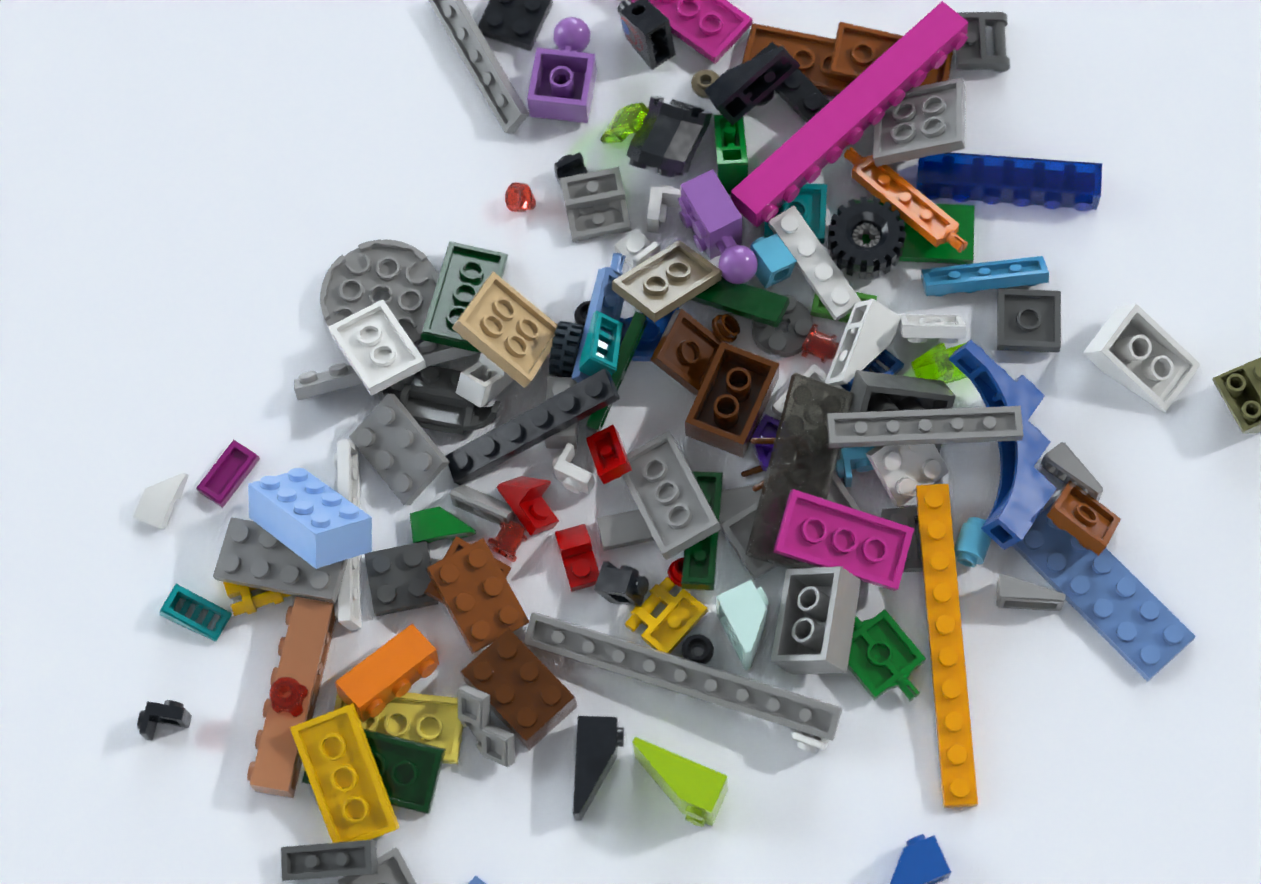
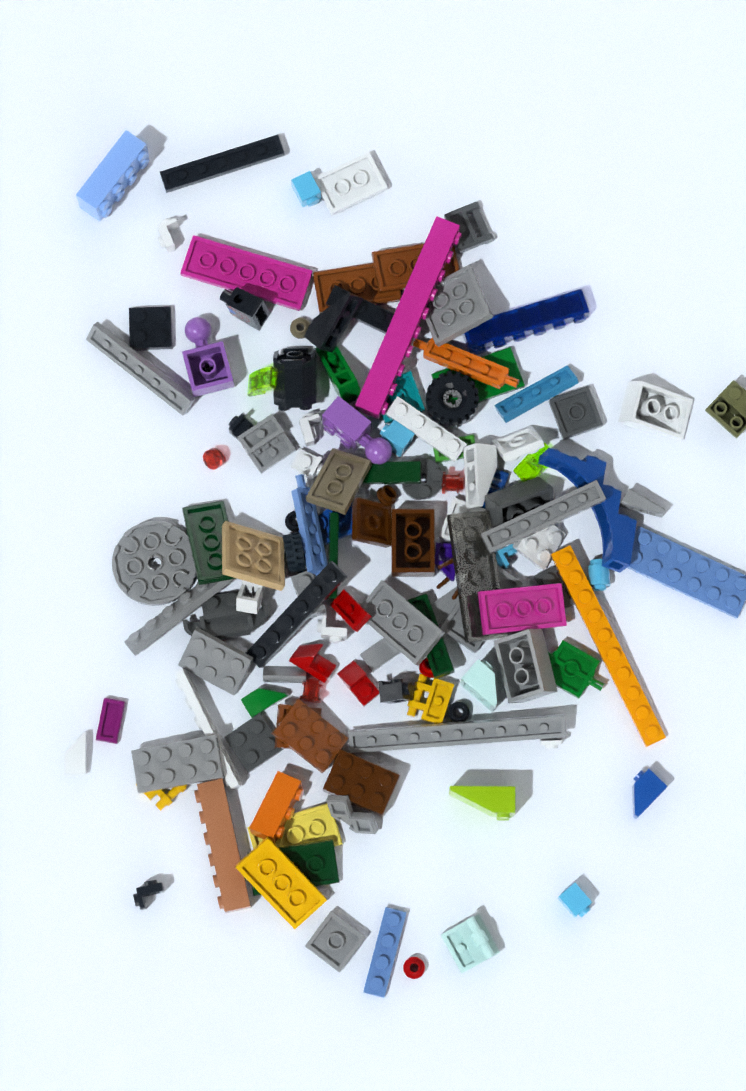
camera: 30 degrees left, 10 degrees up
(167, 611) = (134, 811): teal slope -> none
(292, 703) = (230, 853): clear red brick -> none
(310, 517) = (186, 732): light blue brick -> none
(329, 860) = (294, 936): dark grey plate -> none
(377, 347) = (173, 601): white plate -> none
(591, 360) = (317, 556): teal slope -> none
(595, 755) = (424, 801): black slope -> none
(1026, 595) = (641, 596): light grey slope -> none
(1083, 518) = (660, 532): dark orange plate -> none

